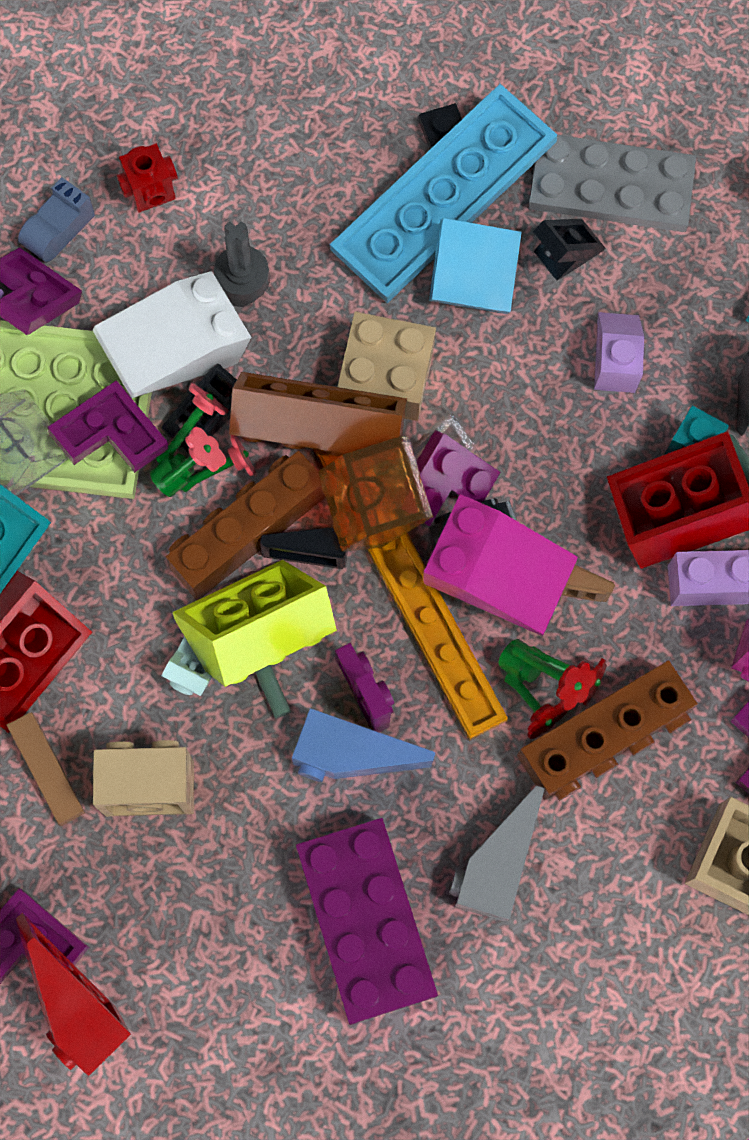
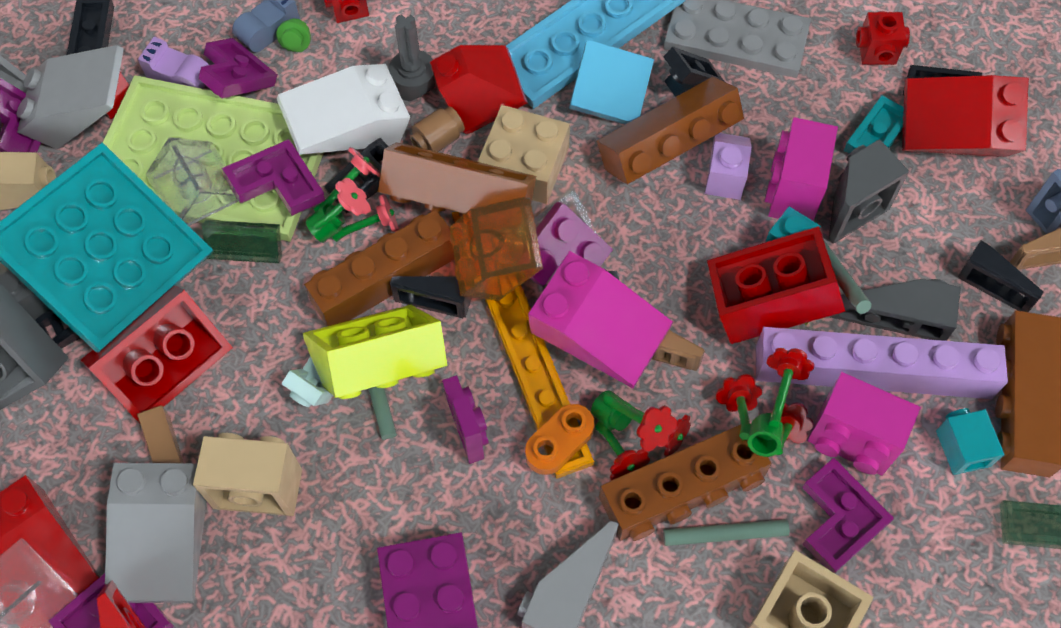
camera: 10 degrees right, 10 degrees down
(54, 854) = (154, 532): none -> light grey slope
(82, 506) = (243, 241): none -> clear green tile
(92, 237) = (294, 35): none -> bright green plate
(281, 346) = (437, 129): none -> medium nougat brick
(322, 283) = (477, 83): none -> red slope
(348, 750) = (441, 472): medium blue slope -> none
(469, 698) = (561, 438): none -> orange plate
(549, 319) = (670, 129): none -> dark orange brick
(655, 779) = (726, 532): none -> sand green bar
(693, 669) = (770, 430): none -> plant
(702, 358) = (801, 168): none -> dark pink brick

